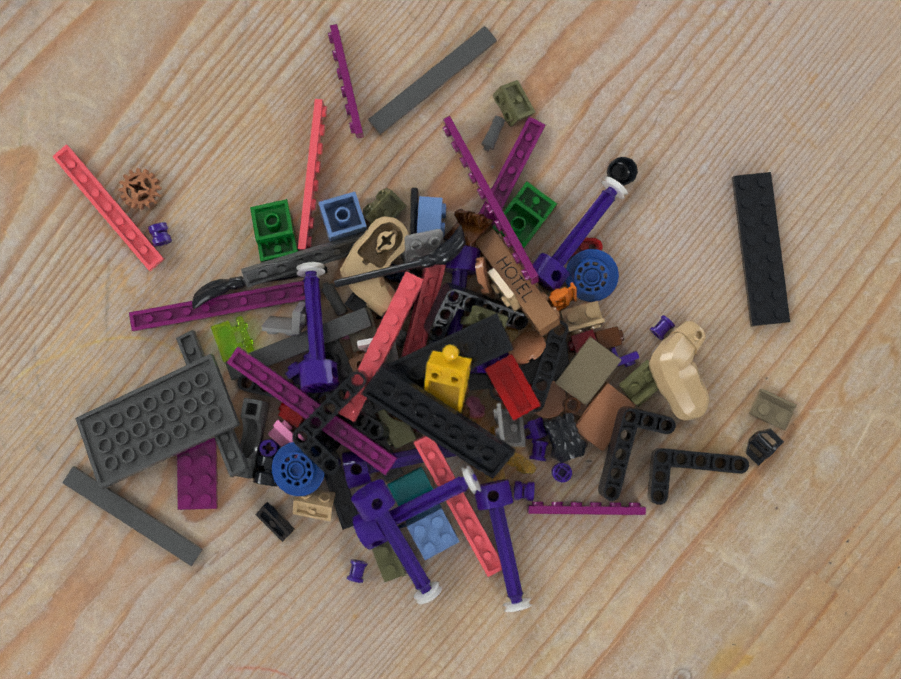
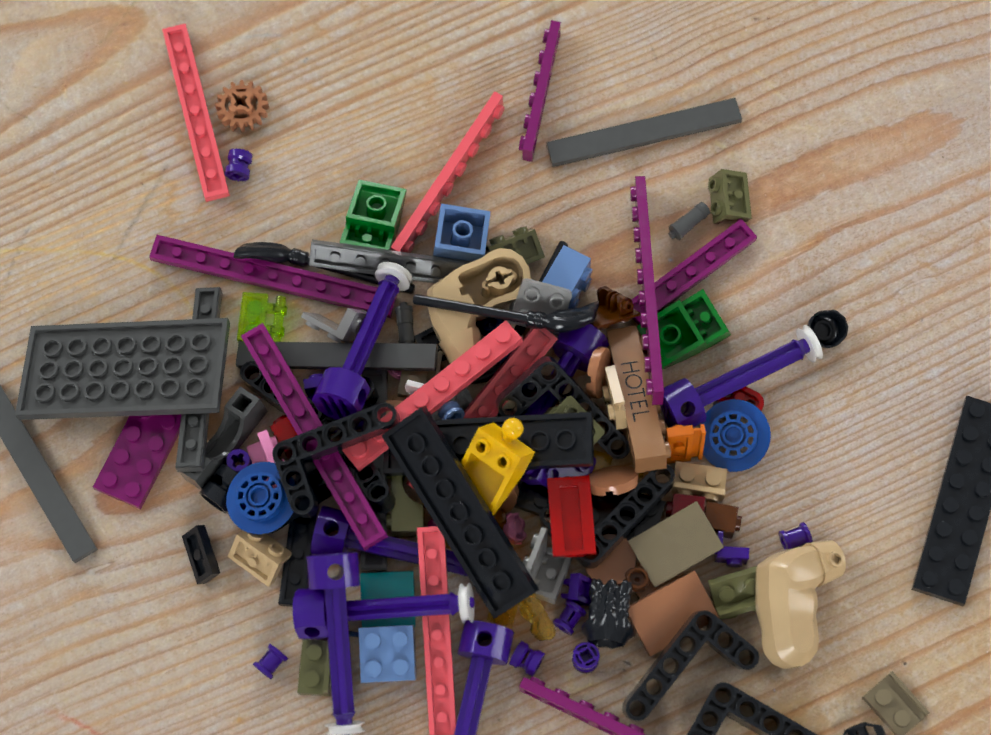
camera: 25 degrees right, 15 degrees down
(398, 351) = (451, 410): none -> medium blue bush

